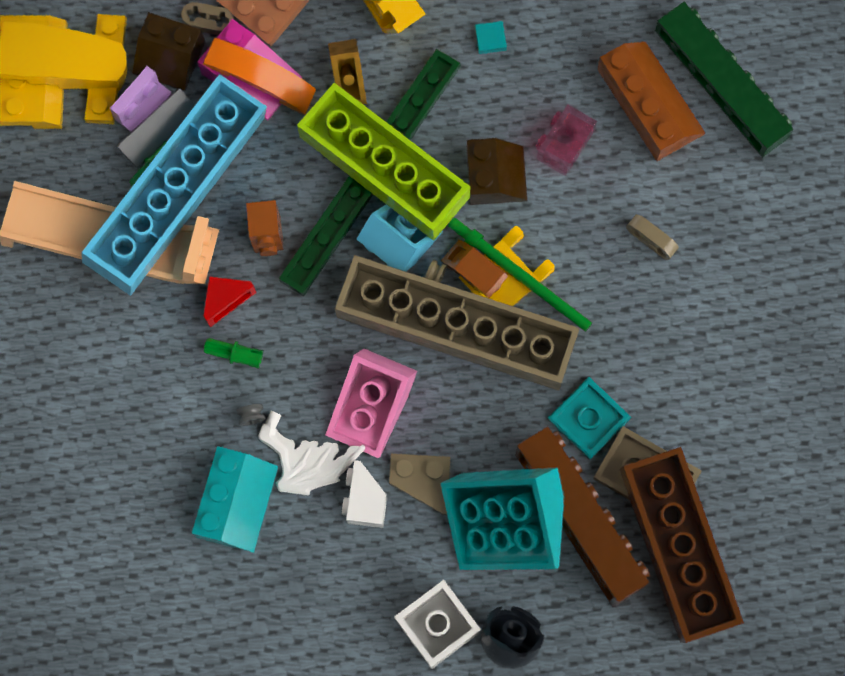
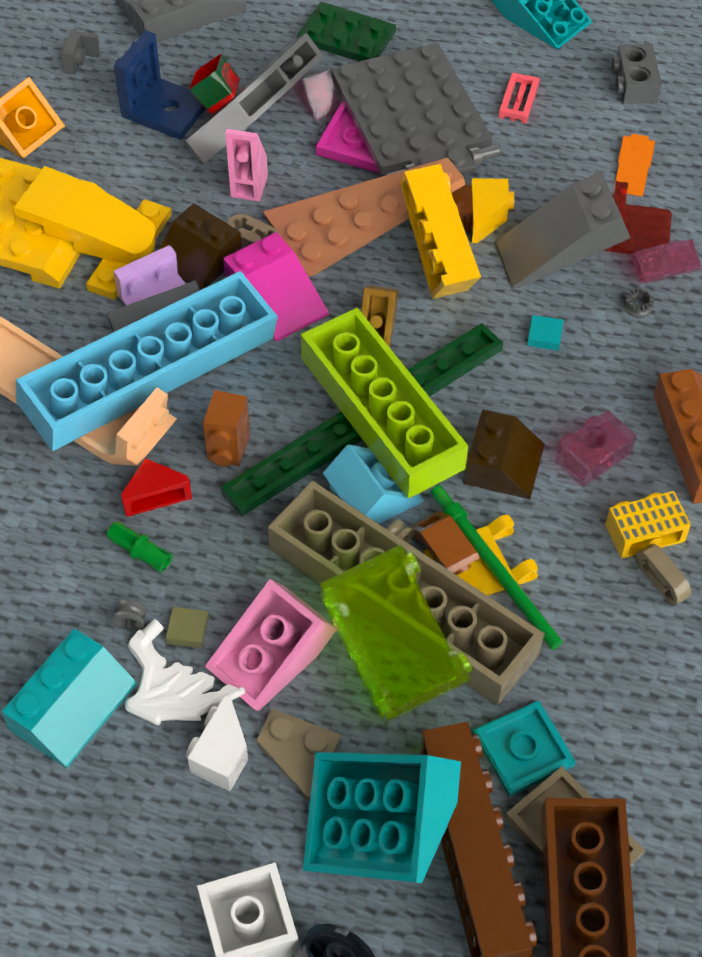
camera: 15 degrees right, 20 degrees down
(260, 73) = (282, 282): orange slope -> none
(299, 407) = (187, 627): none -> olive tile
(469, 373) = (393, 634): none -> clear neon green windscreen
(627, 196) = (647, 521): none -> yellow brick

